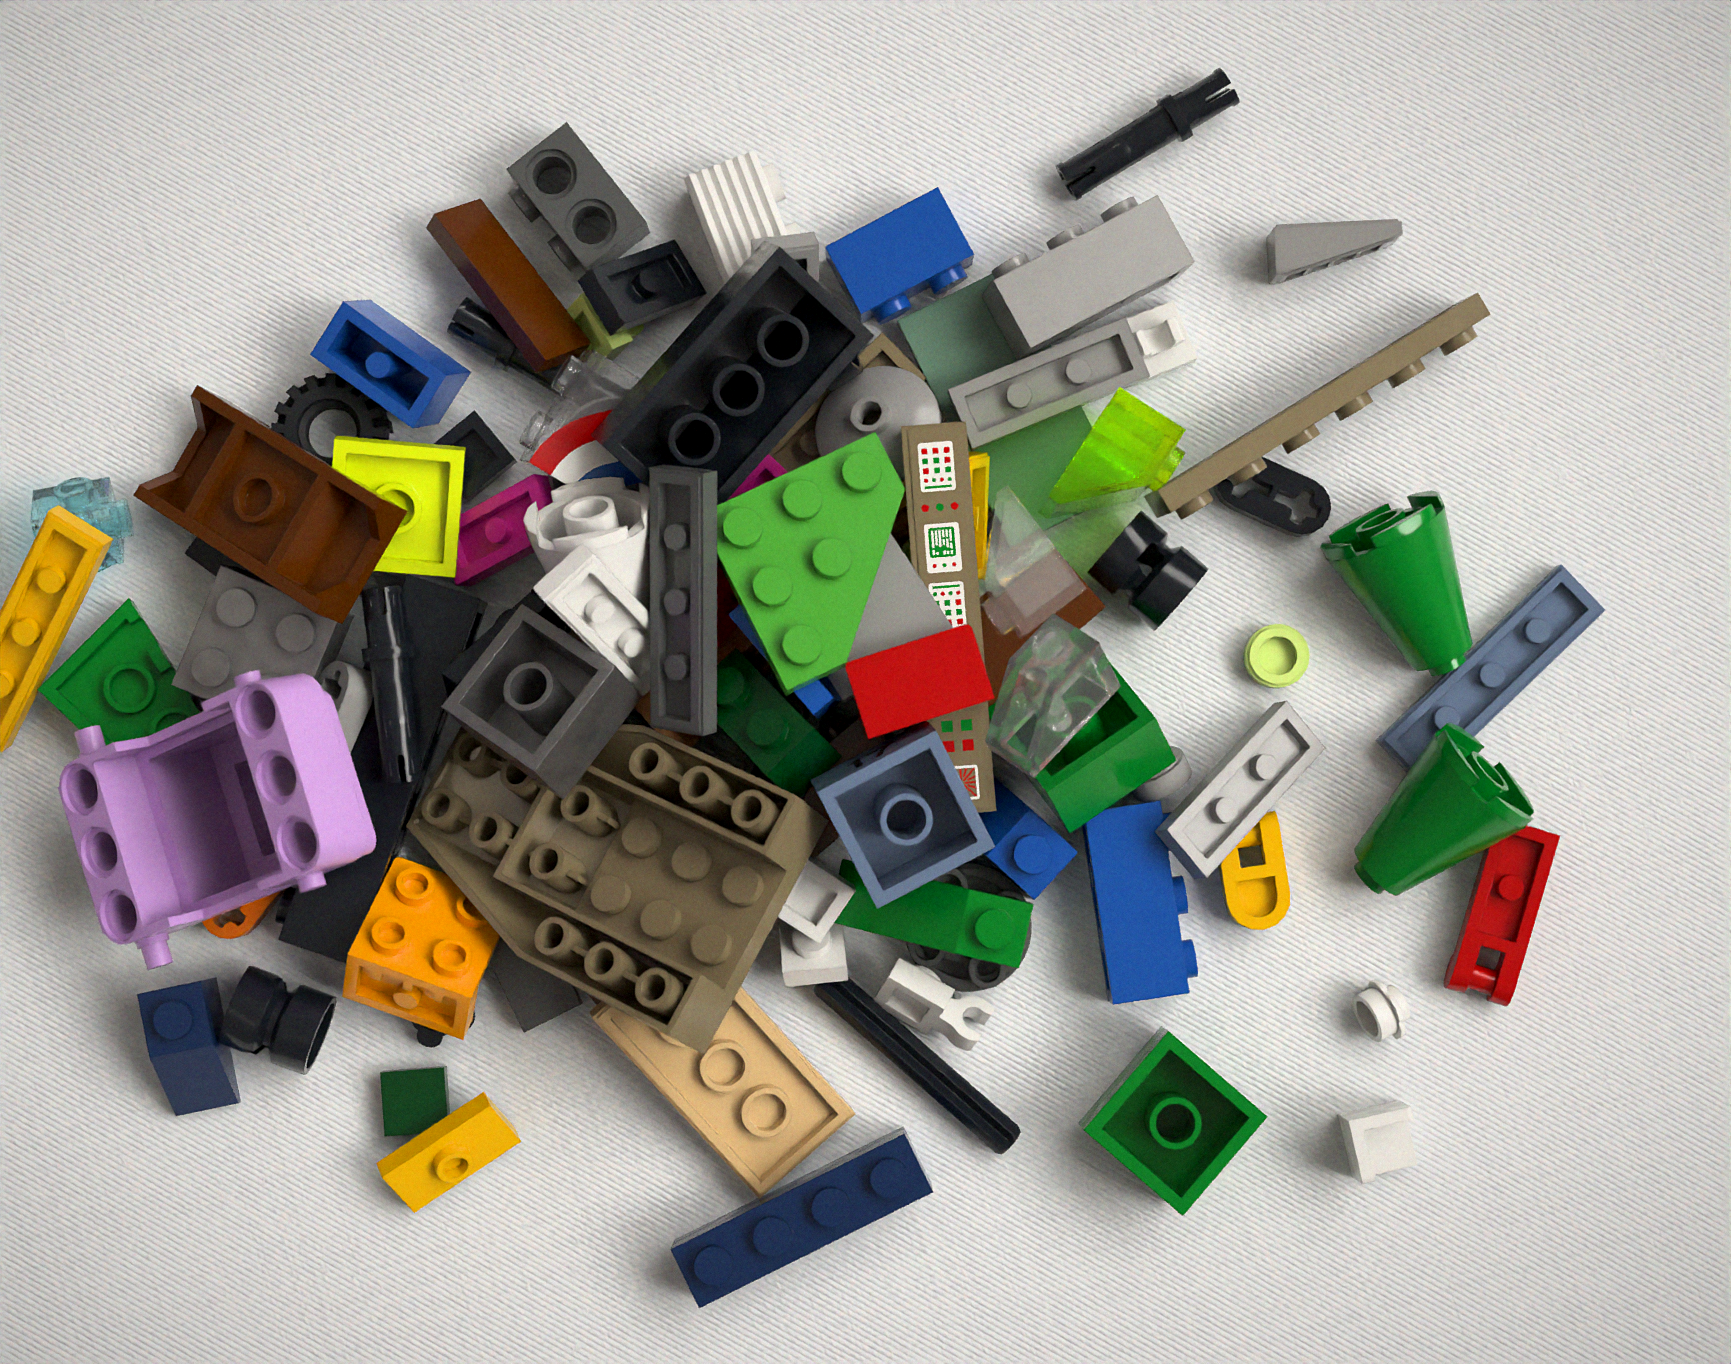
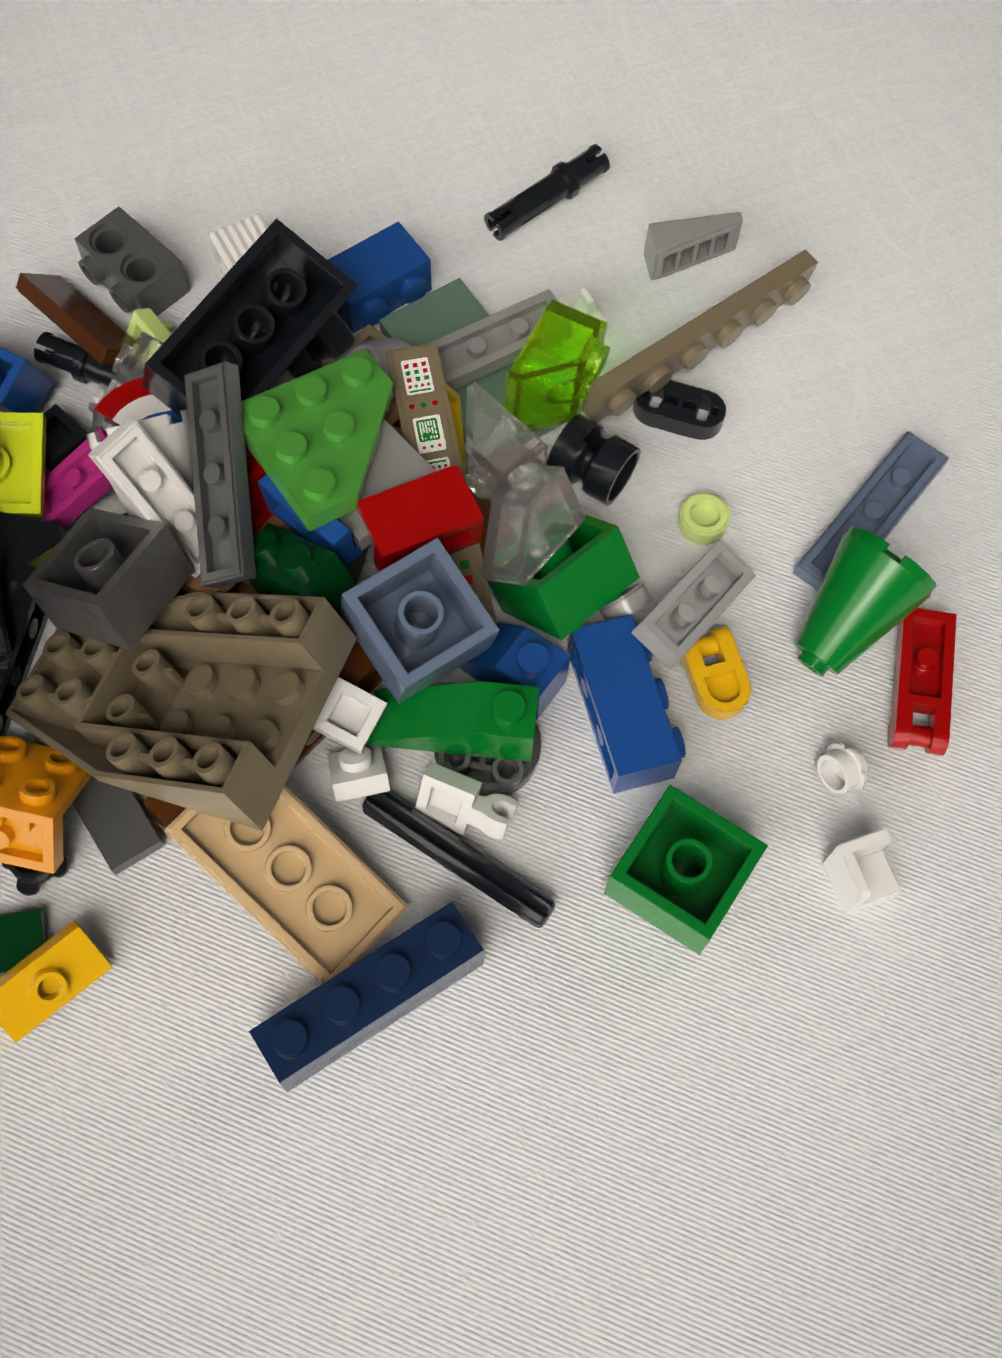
camera: 10 degrees left, 20 degrees down
(642, 287) = (166, 302): black plate -> none
(1086, 275) = (515, 268): light grey brick -> none
(1407, 579) = (795, 443): green cone -> none

